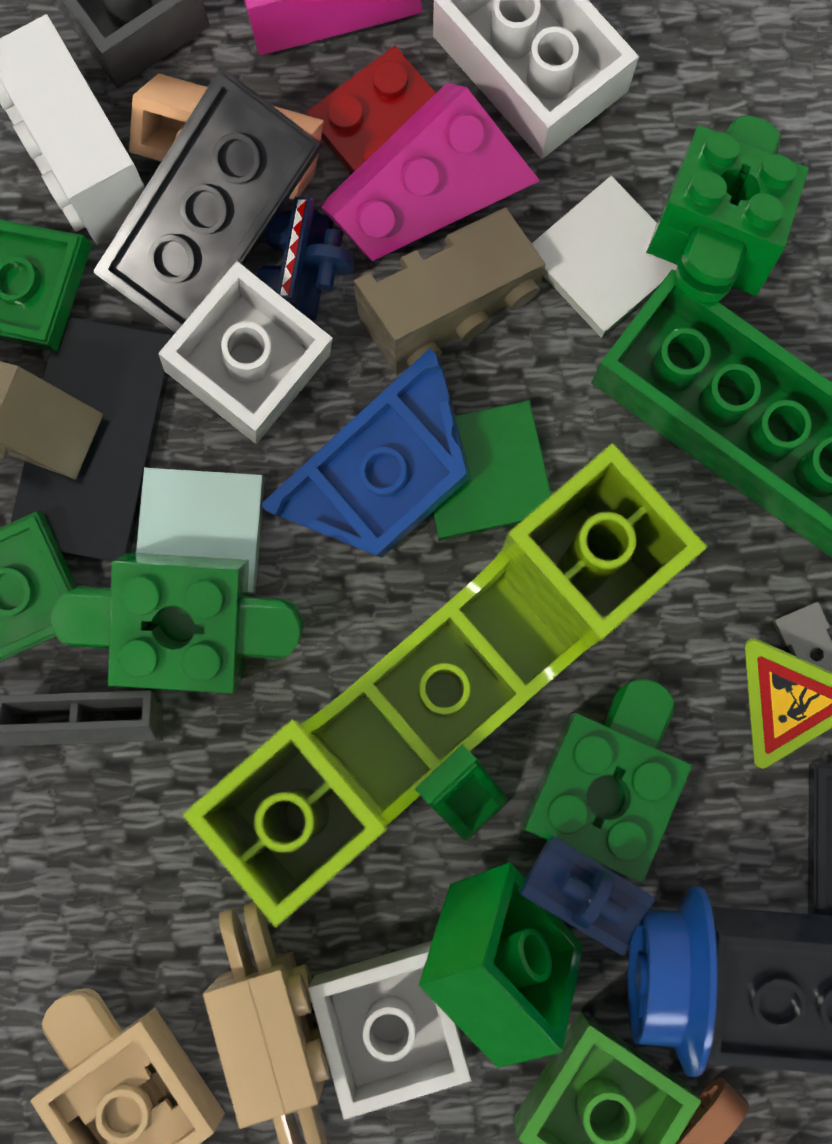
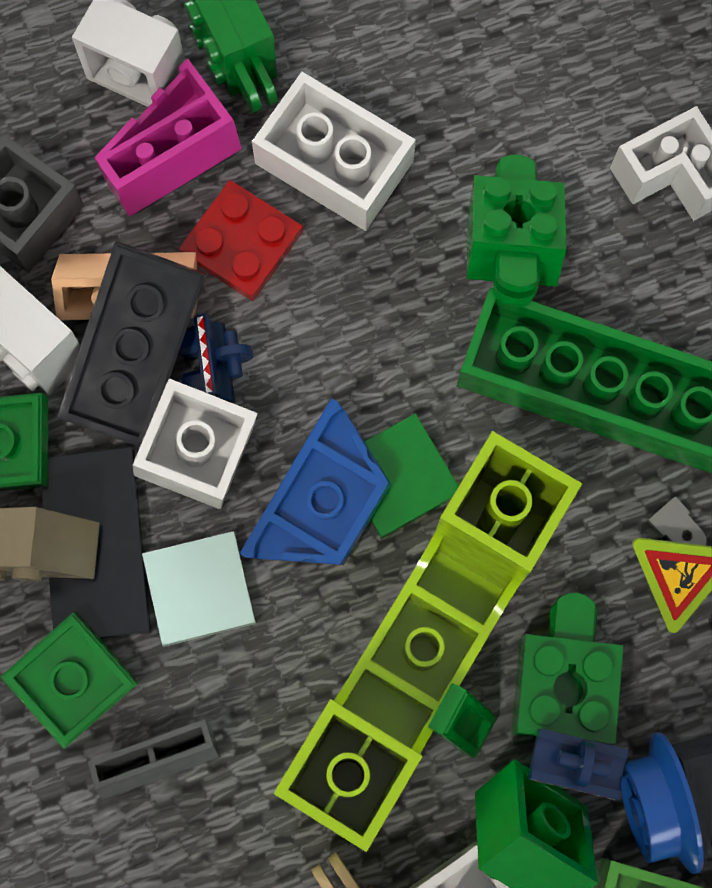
camera: 20 degrees left, 5 degrees down
(177, 622) = (208, 662): green brick -> none
(428, 175) = (287, 272): dark pink wedge -> none
(449, 291) = (331, 350): dark tan wedge -> none
(601, 258) = (433, 291): white tile -> none

